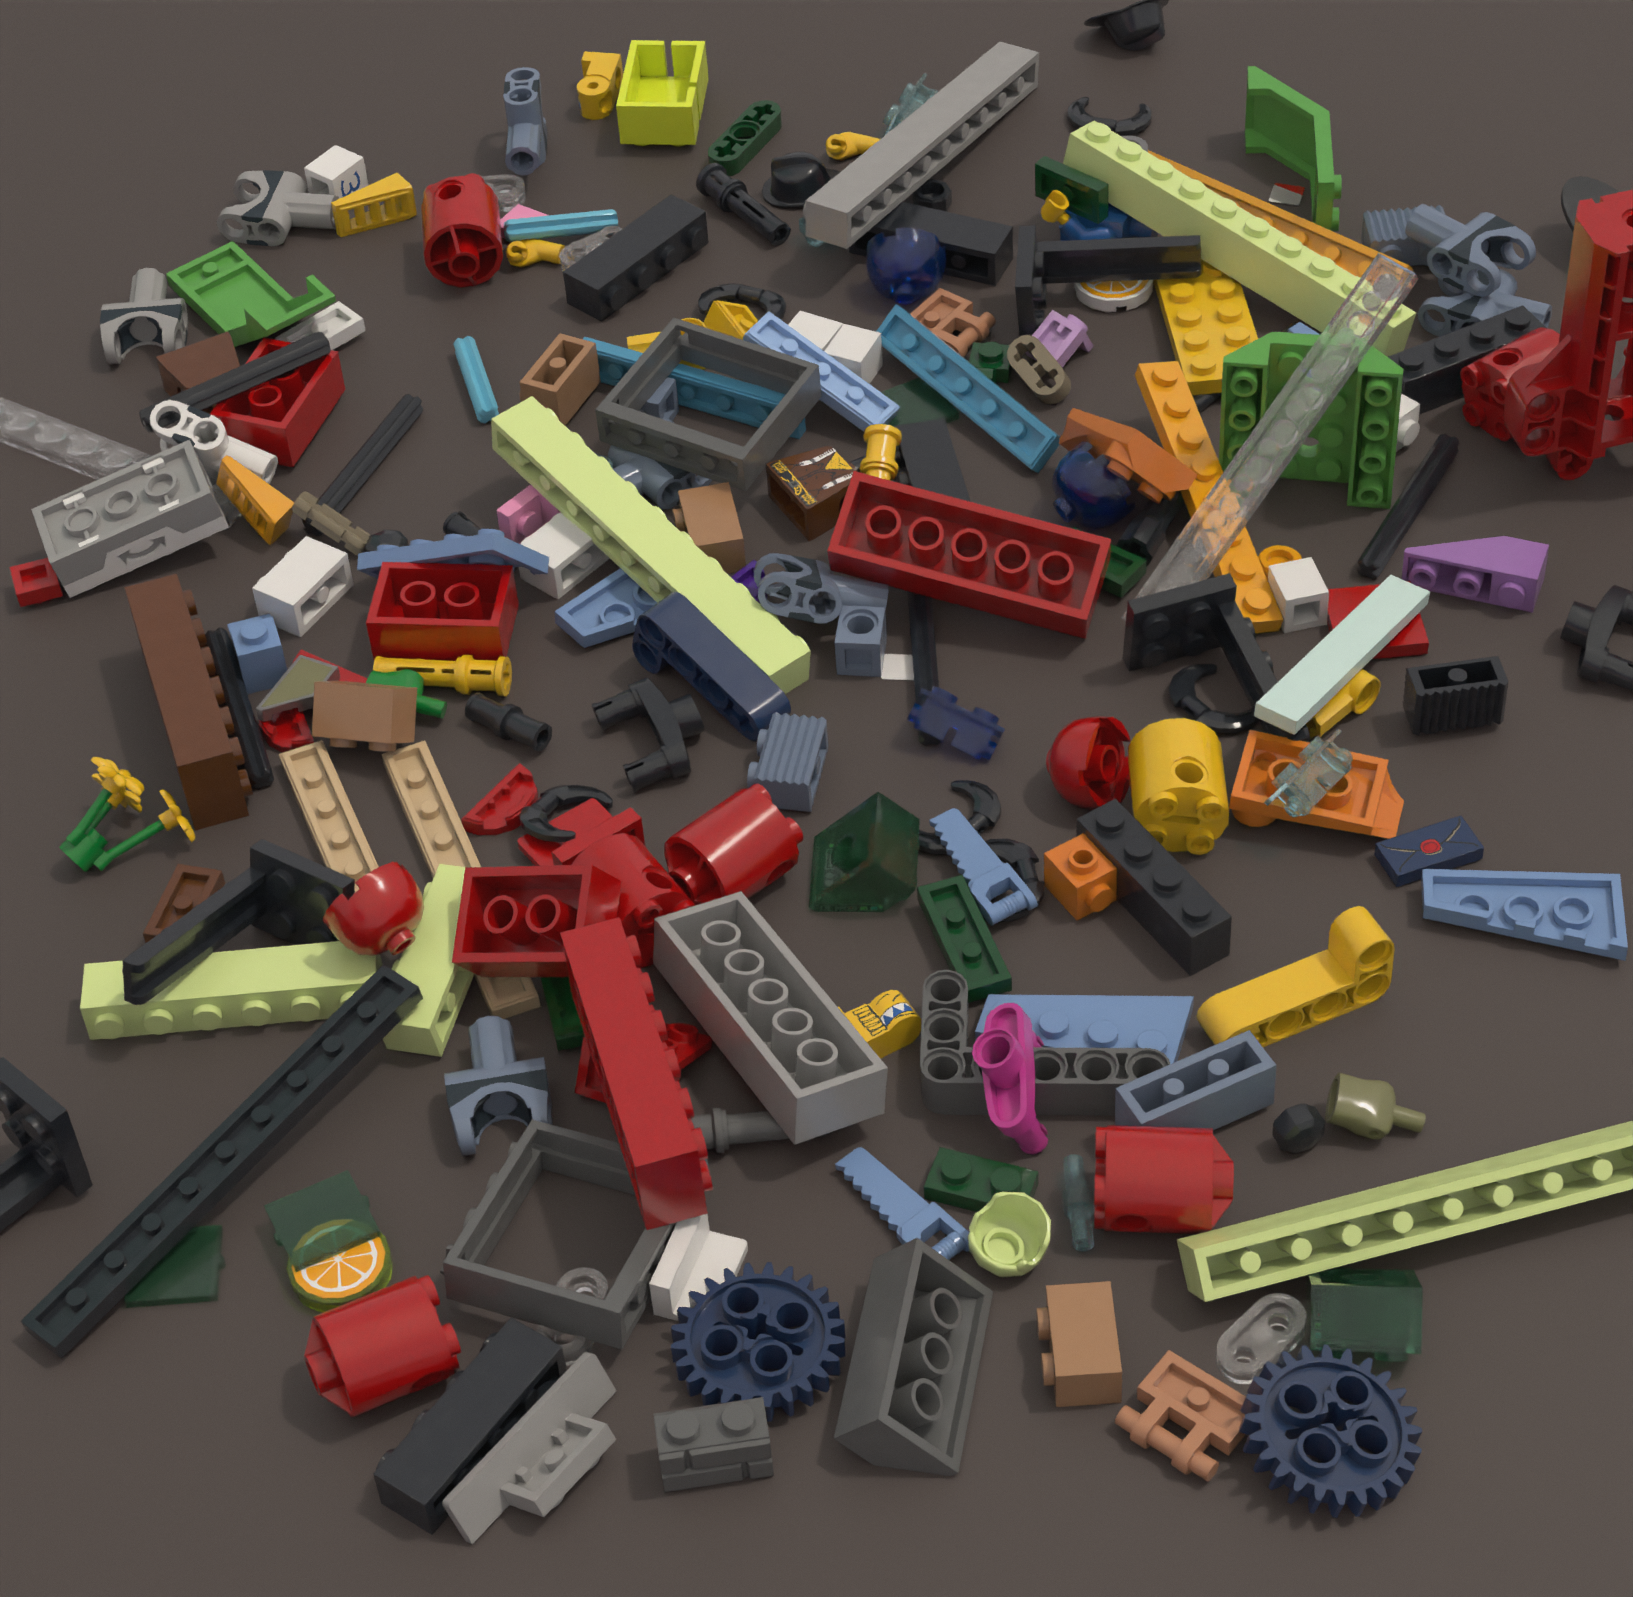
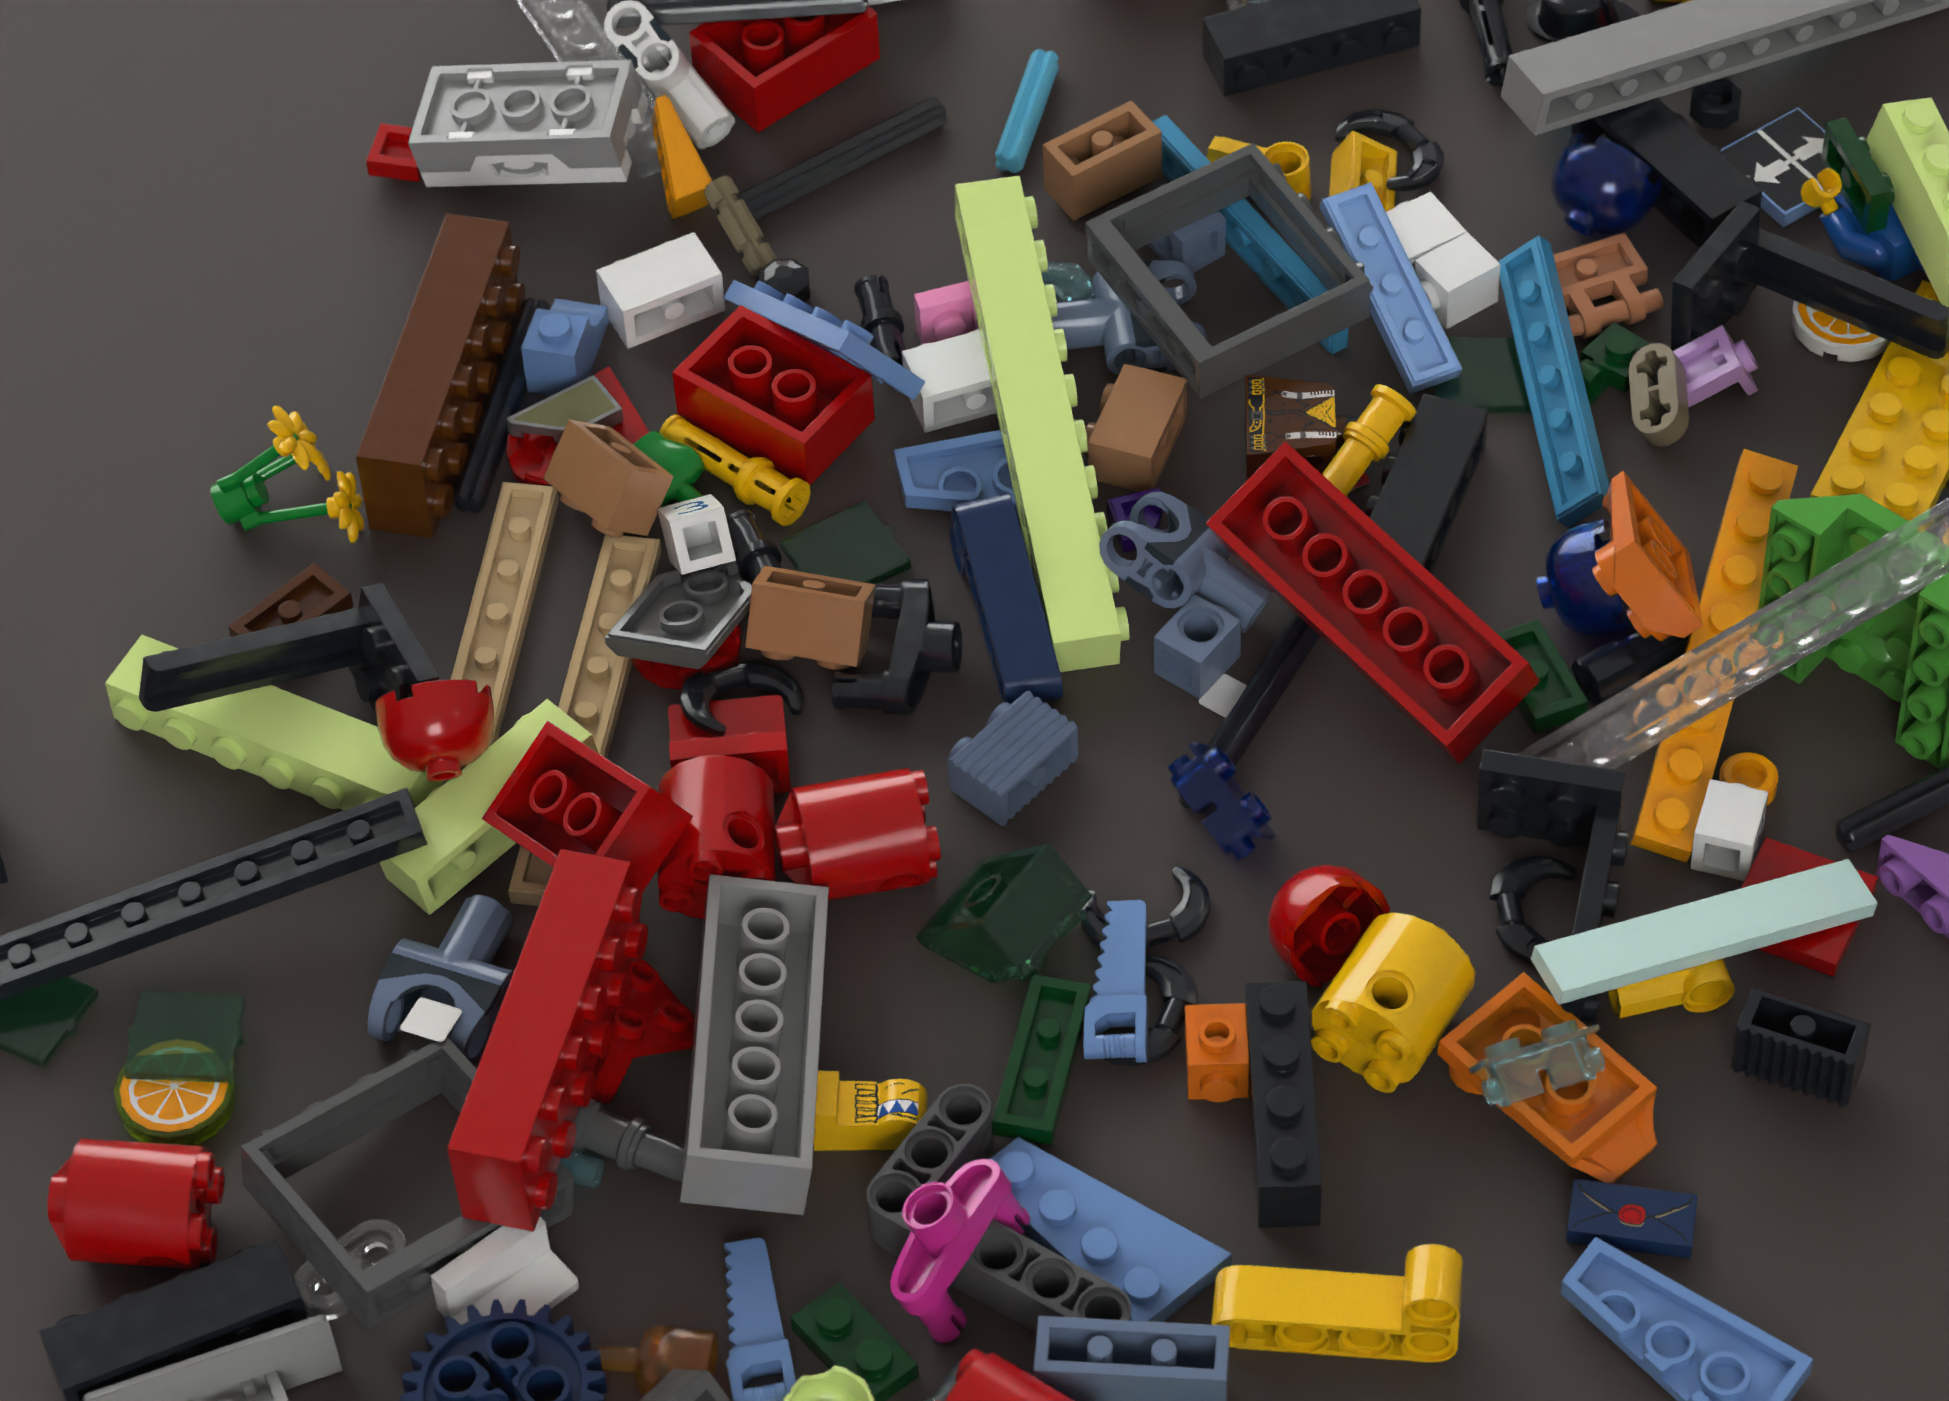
camera: 30 degrees right, 5 degrees up
(455, 721) = (696, 534): none -> white brick
(487, 777) = (683, 617): none -> dark grey tile
(512, 1114) = (431, 1019): none -> white sticker
(564, 694) = (848, 547): none -> clear green piece
(581, 737) = (810, 617): none -> medium nougat brick
(852, 1257) = (661, 1352): none -> clear orange piece
(1008, 206) = (1781, 161): none -> black tile

